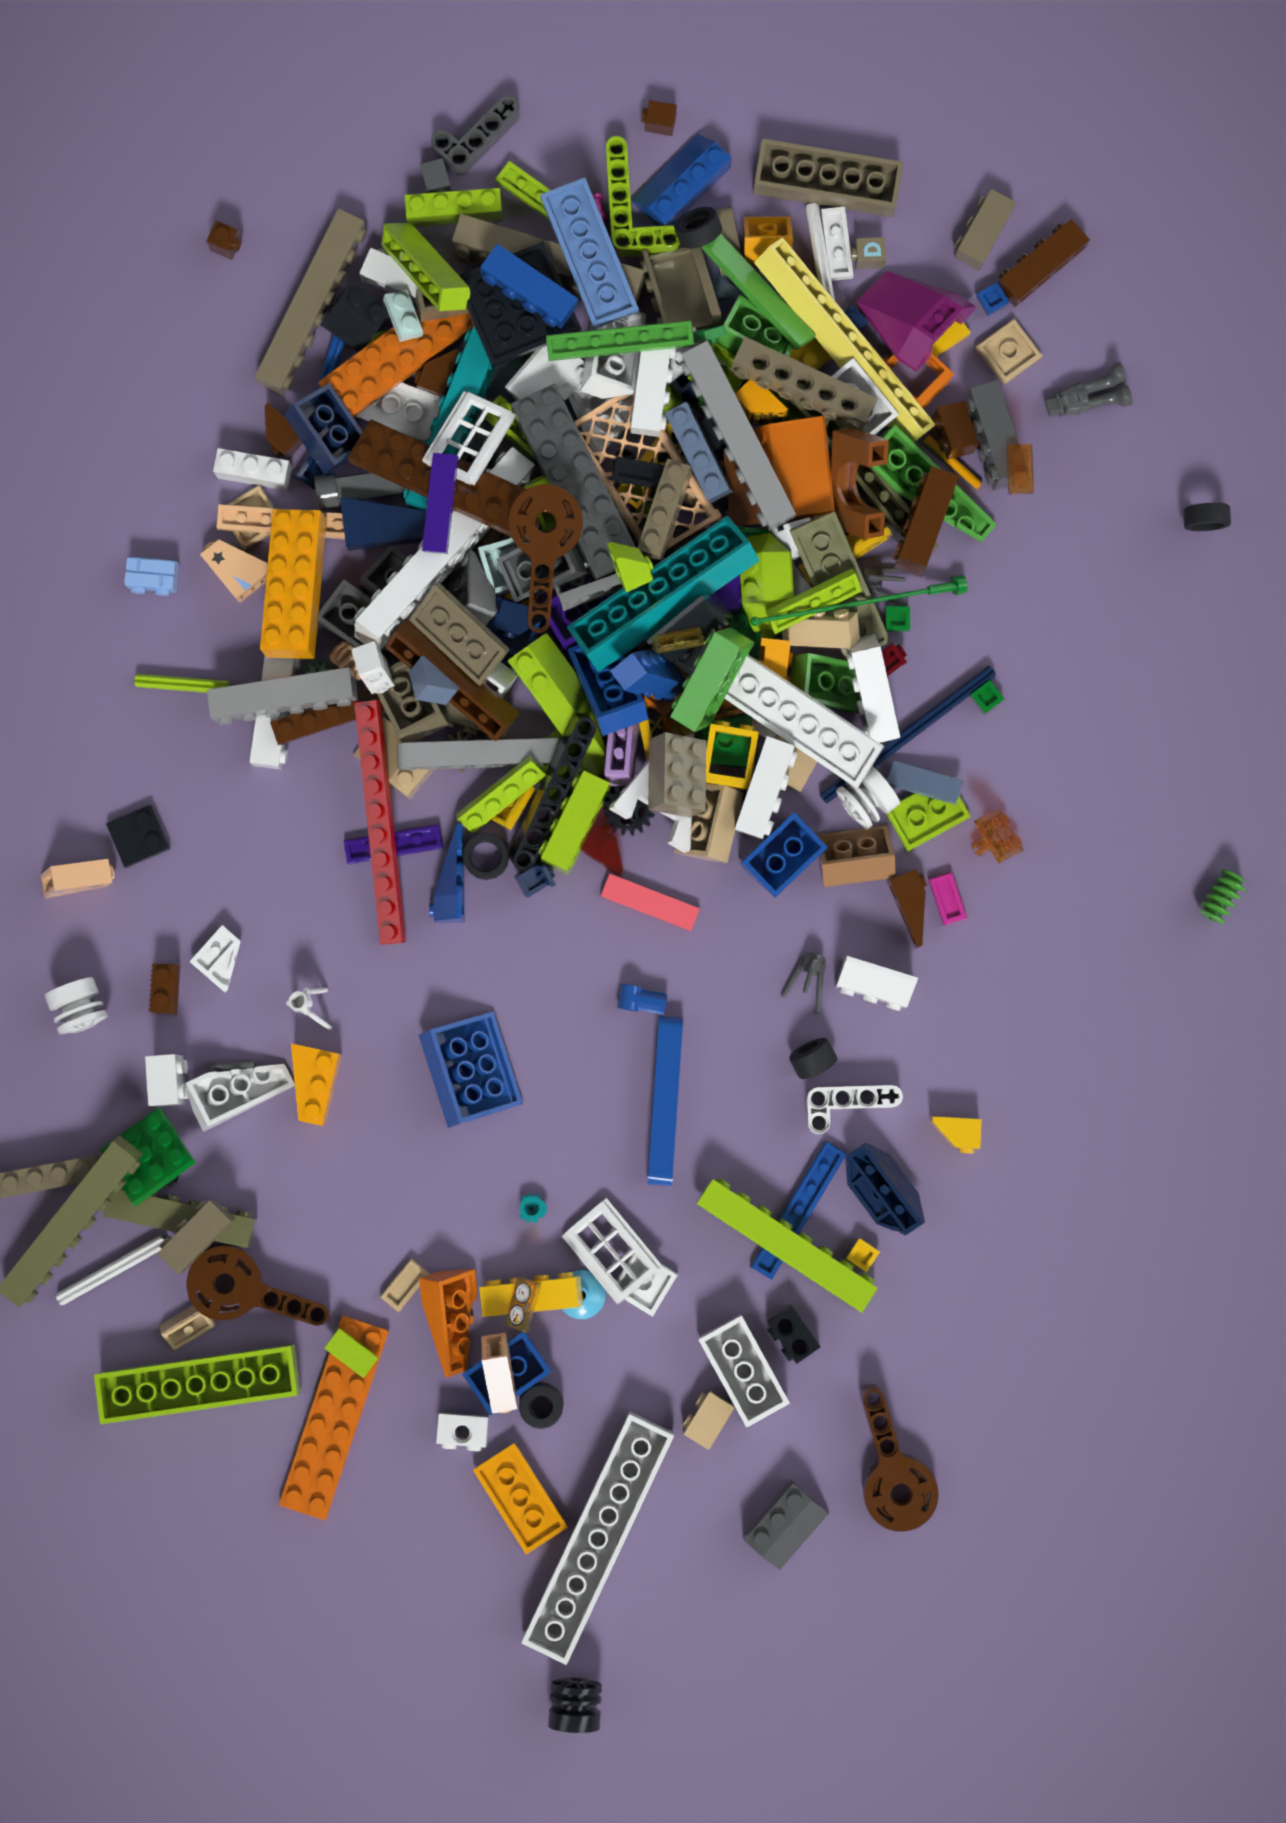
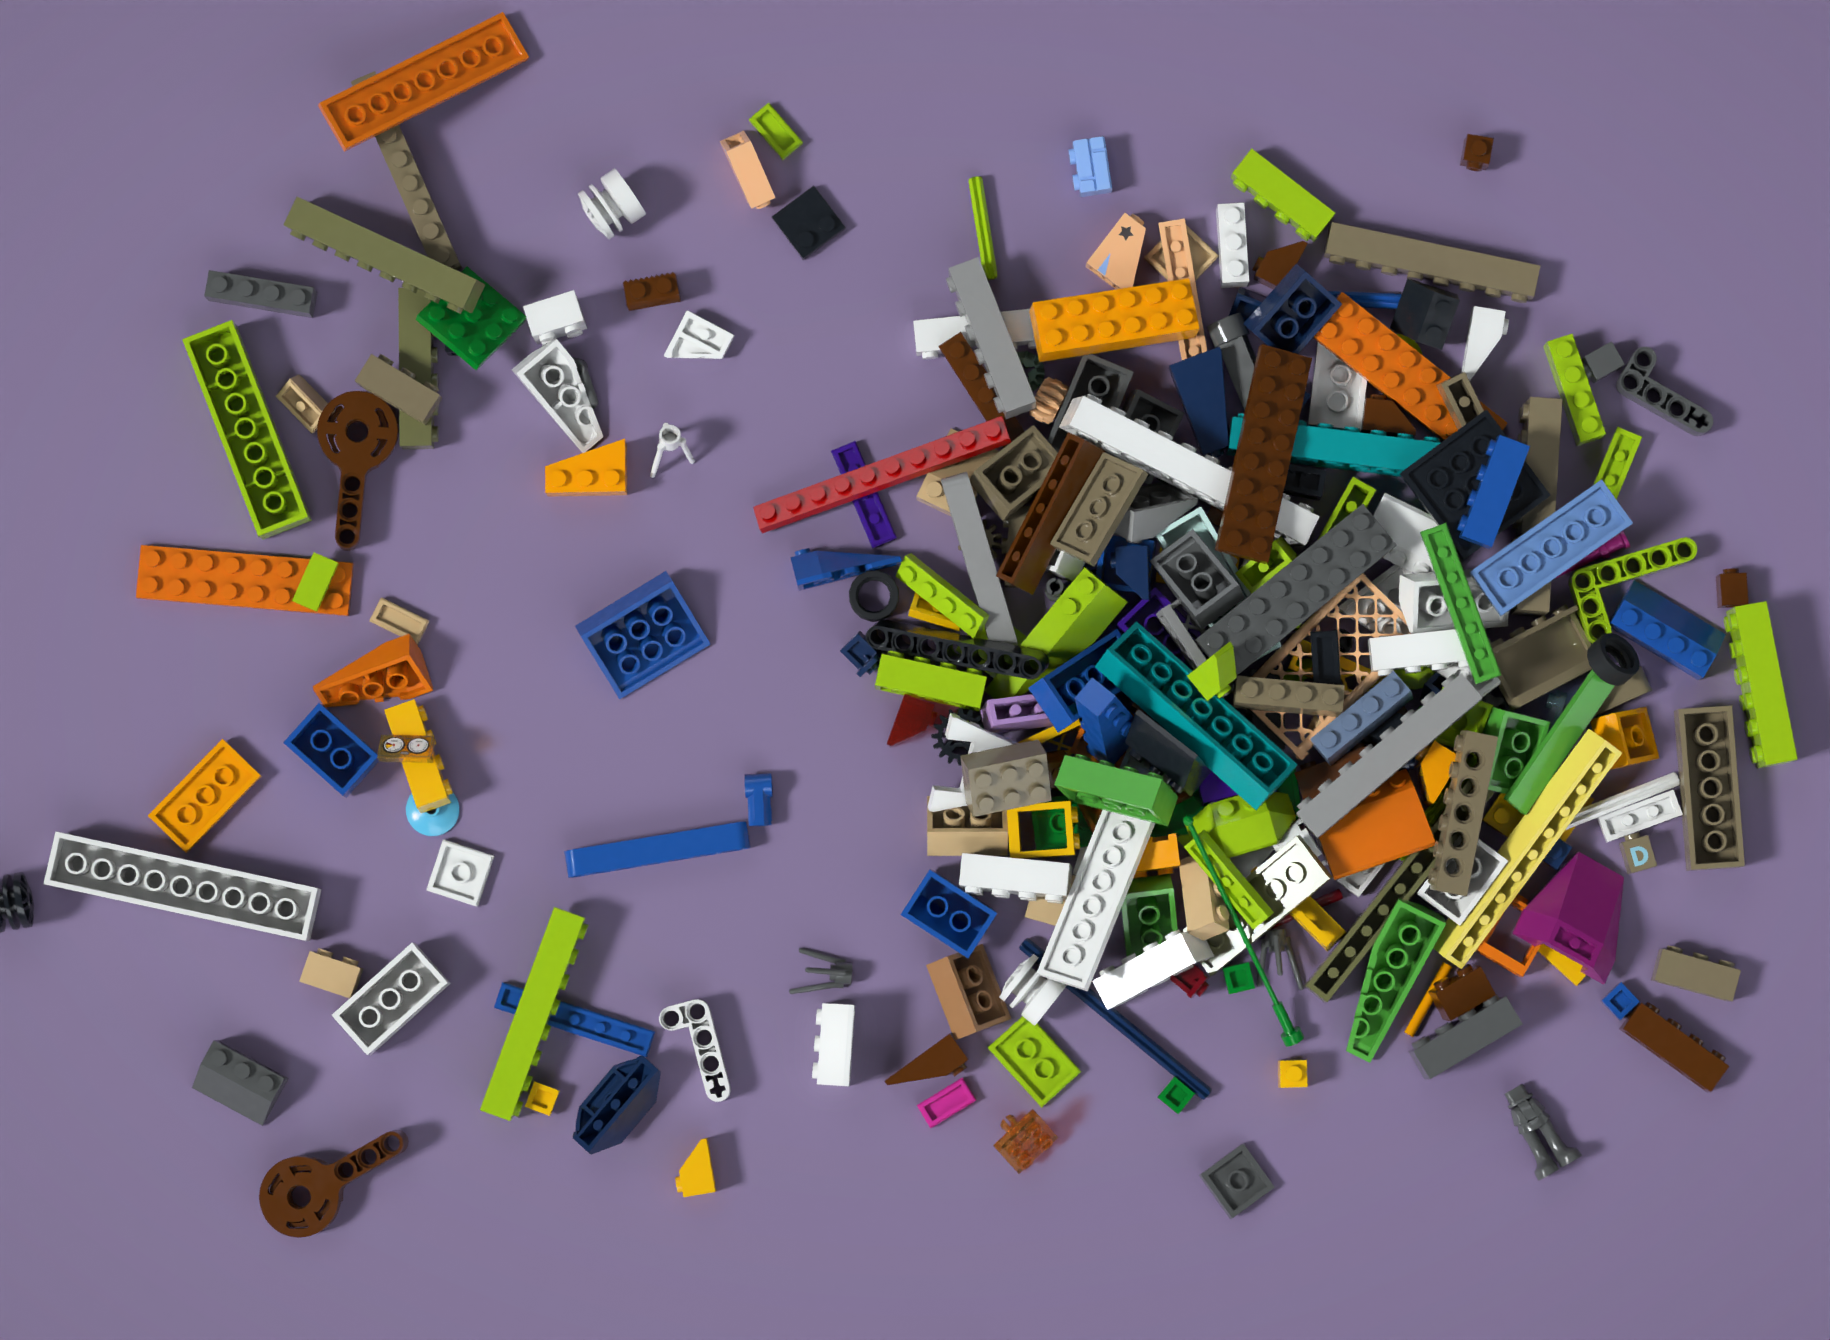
camera: 80 degrees right, 0 degrees up
(48, 846) = (775, 131): none -> lime tile
(77, 1343) = (260, 294): none -> dark grey brick
(109, 1271) = (343, 309): white axle -> none
(219, 416) = (1282, 195): none -> lime brick
(373, 667) = (1040, 426): white brick -> none
(403, 315) = (1437, 364): light aqua plate -> none
(425, 267) = (1492, 375): lime brick -> none
(430, 683) = (1039, 491): sand blue slope -> none
(440, 503) = (1232, 454): dark purple tile -> none
(476, 1423) = (271, 731): white brick -> none
(489, 446) = (1322, 445): white piece -> none
(498, 1373) = (328, 740): slope -> none
(522, 699) = (1052, 584): none -> dark grey pin
(530, 1416) = (289, 790): black tyre -> none
(535, 1202) = (513, 743): teal animal -> none
(544, 545) = (1213, 575): reddish brown beam -> none
(596, 1267) = (504, 845): white piece -> none
(650, 902) = (866, 783): coral tile -> none
(677, 640) = (1145, 742): clear yellow slope -> none
(709, 334) = (1494, 698): green plate -> none
(750, 111) = (1760, 685): none -> lime brick
(797, 1331) = (445, 1048): black brick -> none
(813, 1058) = (739, 996): black tyre -> none
(849, 450) = (1399, 881): dark orange arch -> none
(925, 782) = (1065, 1048): sand blue tile -> none
(926, 521) = (1344, 980): reddish brown brick -> none
(992, 592) = (1292, 1073): none -> yellow brick
(1008, 352) = (1566, 1032): tan tile -> none
(1020, 469) = (1428, 1070): clear orange plate -> none
(1073, 663) = (1236, 1181): none -> dark grey plate
(1207, 517) = (1432, 1290): black tyre -> none

